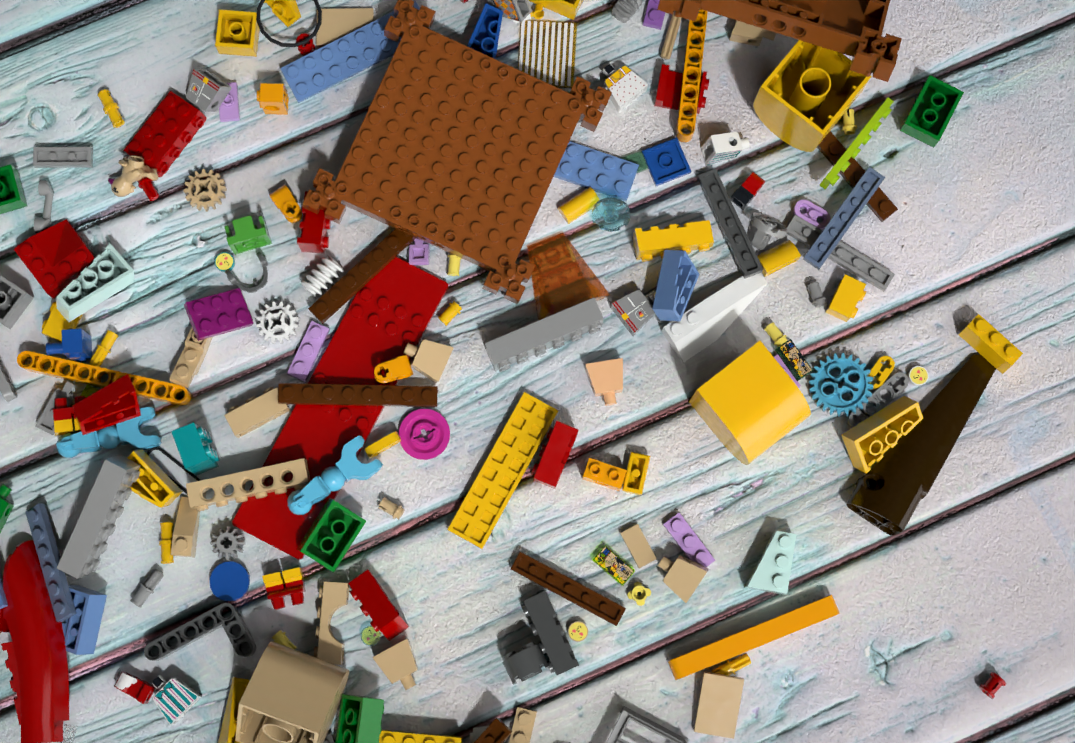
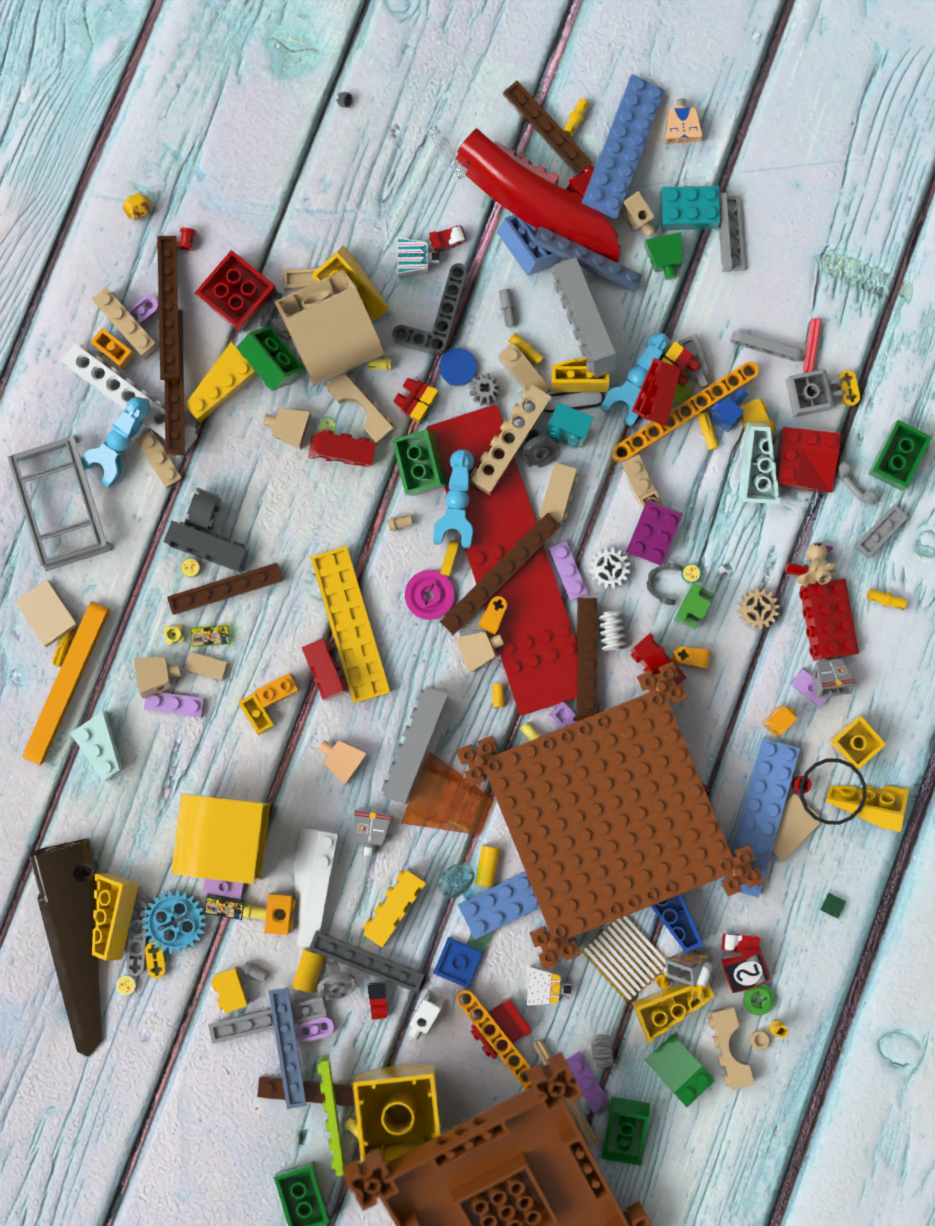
camera: 135 degrees right, 5 degrees up
(235, 455) = (540, 449): none -> dark grey tile
(674, 285) = (358, 872): medium blue wedge -> none
(752, 325) = (272, 923): none -> light orange brick
(990, 344) = (95, 1060): yellow brick -> none

